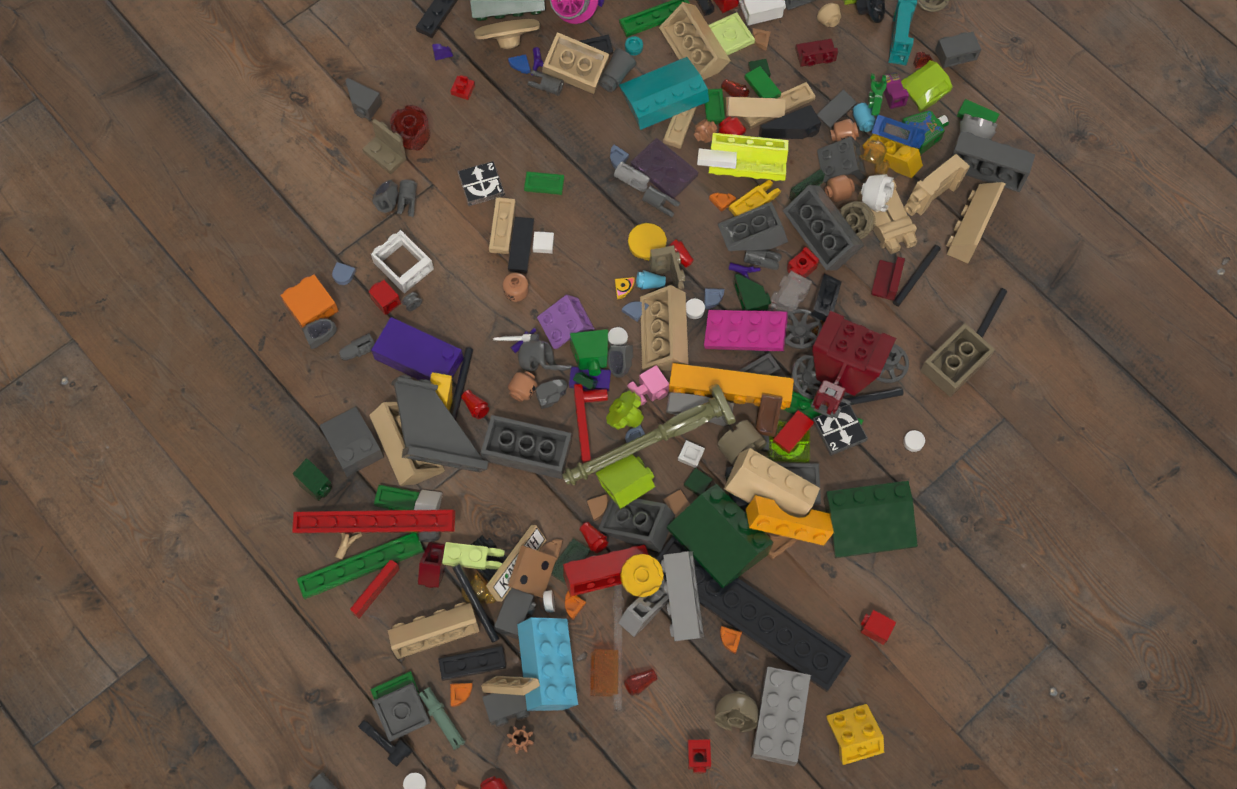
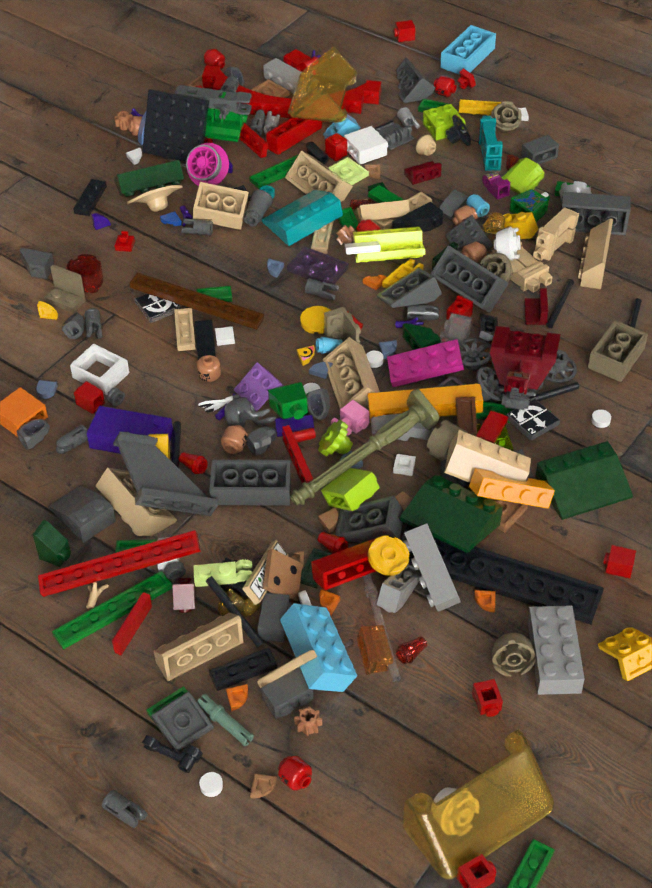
camera: 10 degrees left, 20 degrees down
(361, 169) = (46, 311): none -> yellow tile
(522, 191) = (197, 301): none -> reddish brown plate
(585, 380) = (292, 421): dark green tile -> none
(631, 176) = (290, 276): light grey hinge -> none
(698, 482) = (415, 482): dark green tile -> none
(875, 96) = (483, 188): green plate -> none
(899, 131) = (511, 204): blue window -> none

